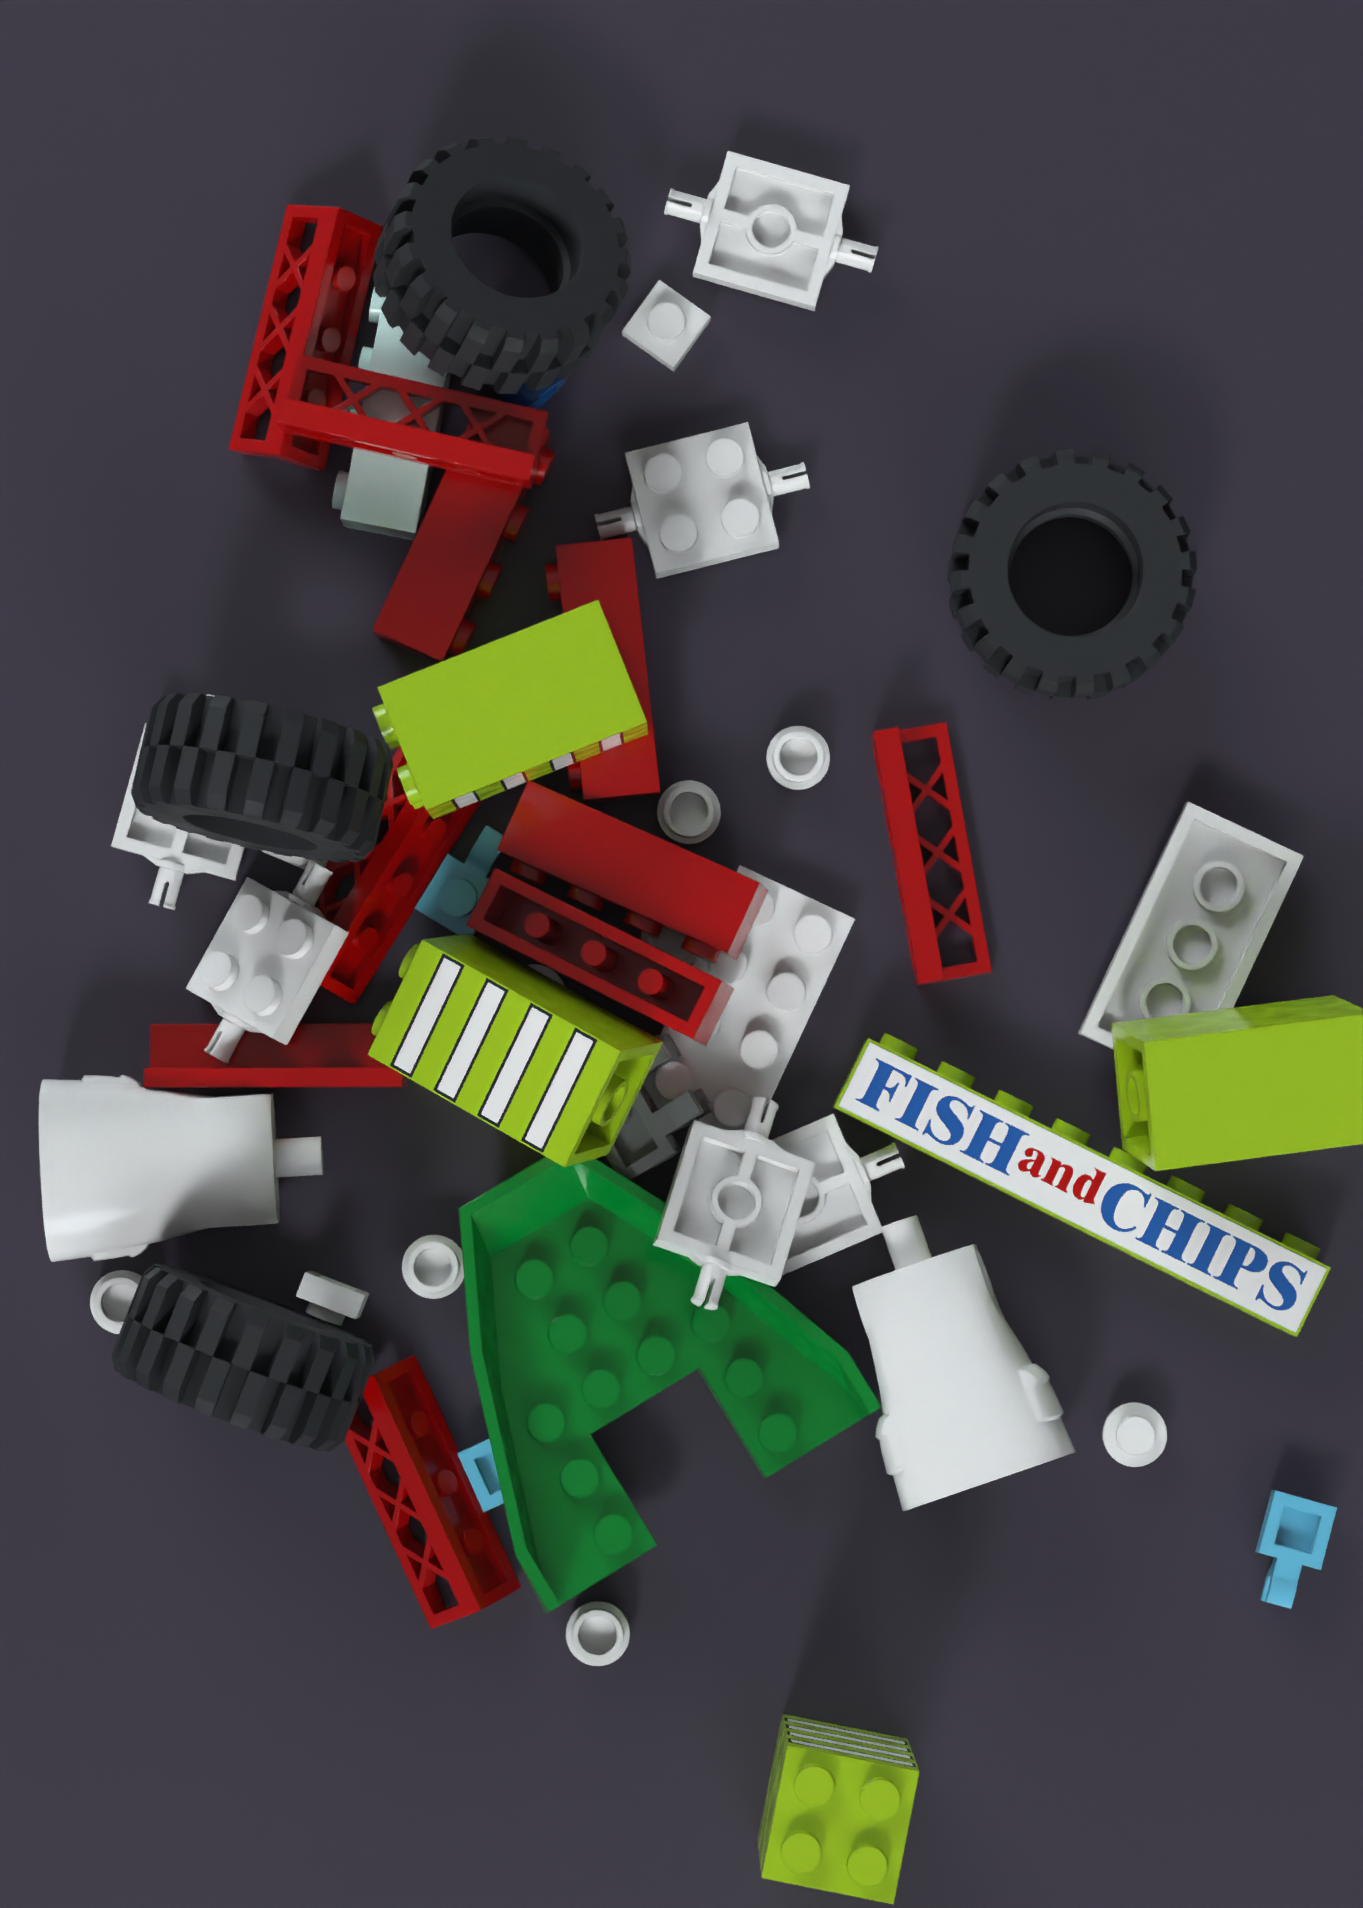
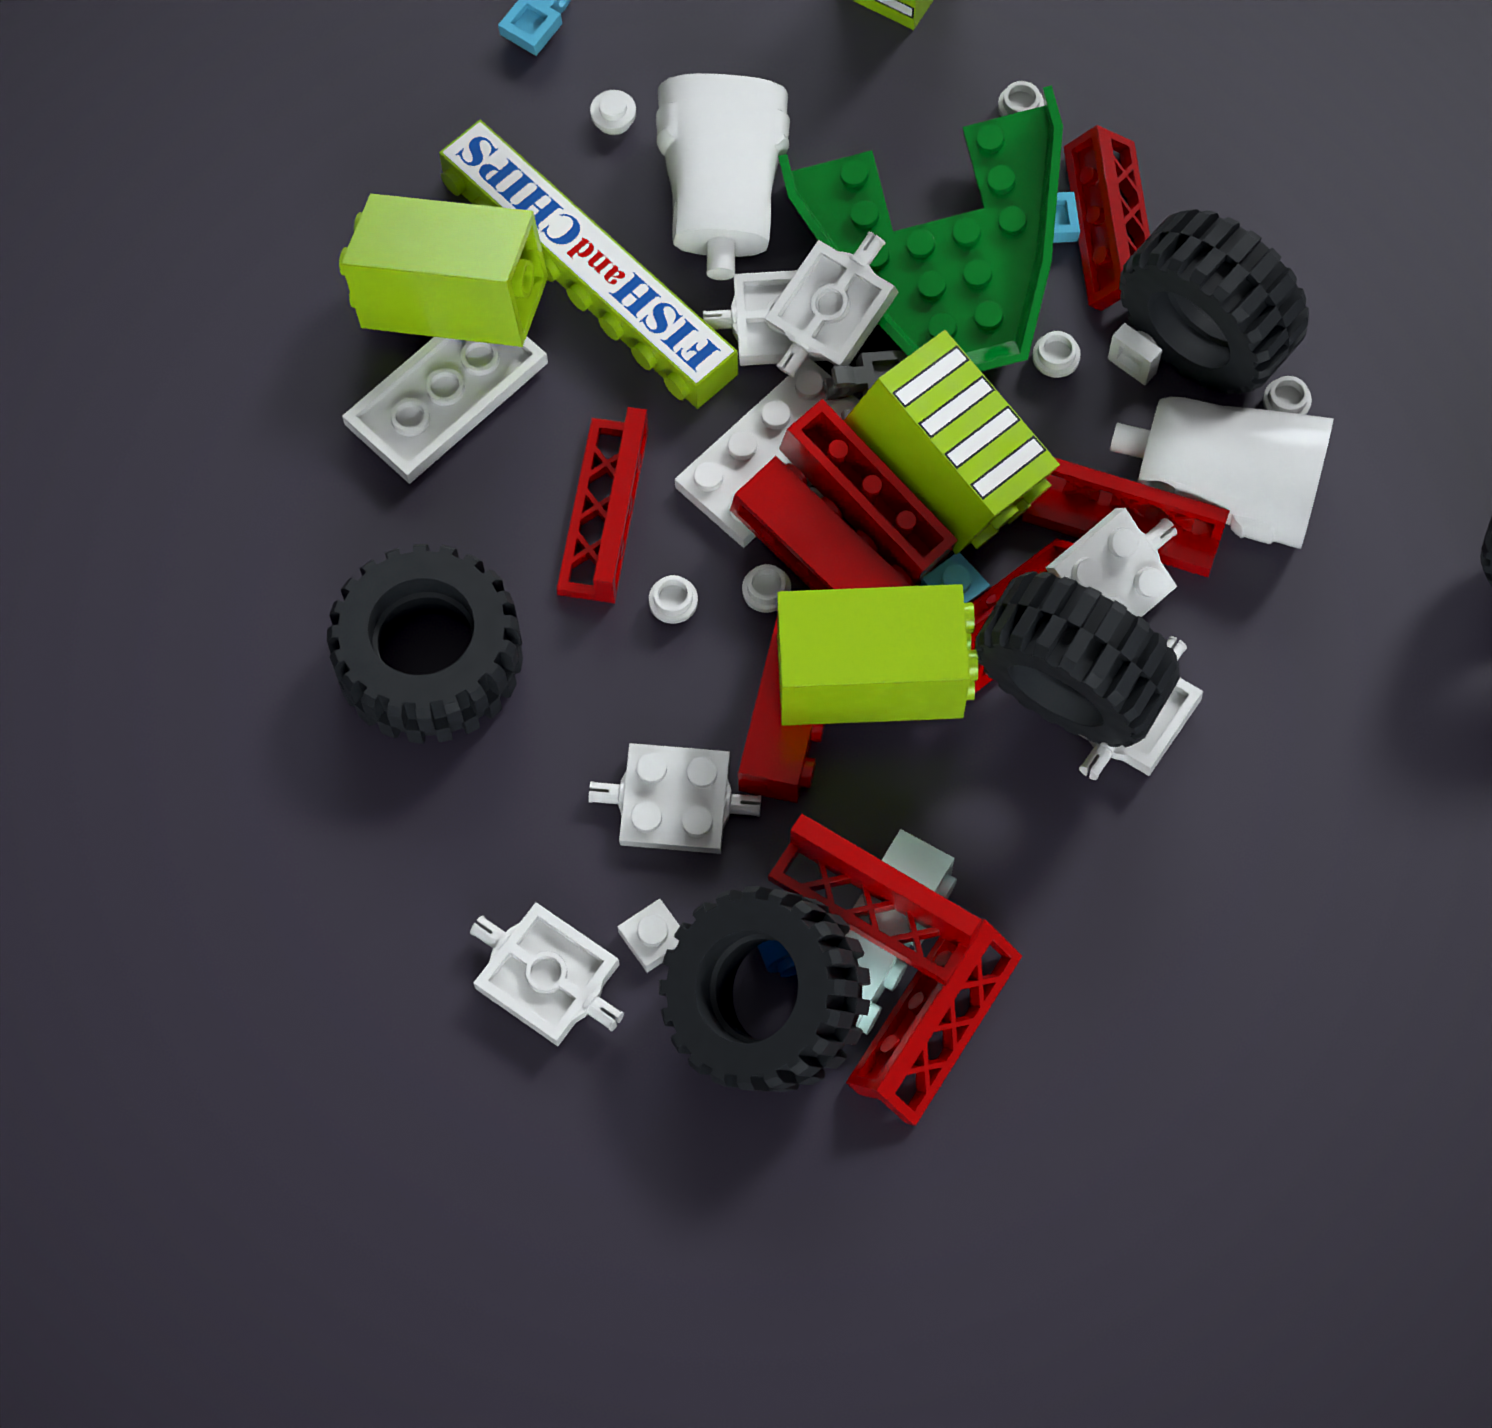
camera: 160 degrees left, 20 degrees down
(457, 553) = (875, 807): red brick -> none

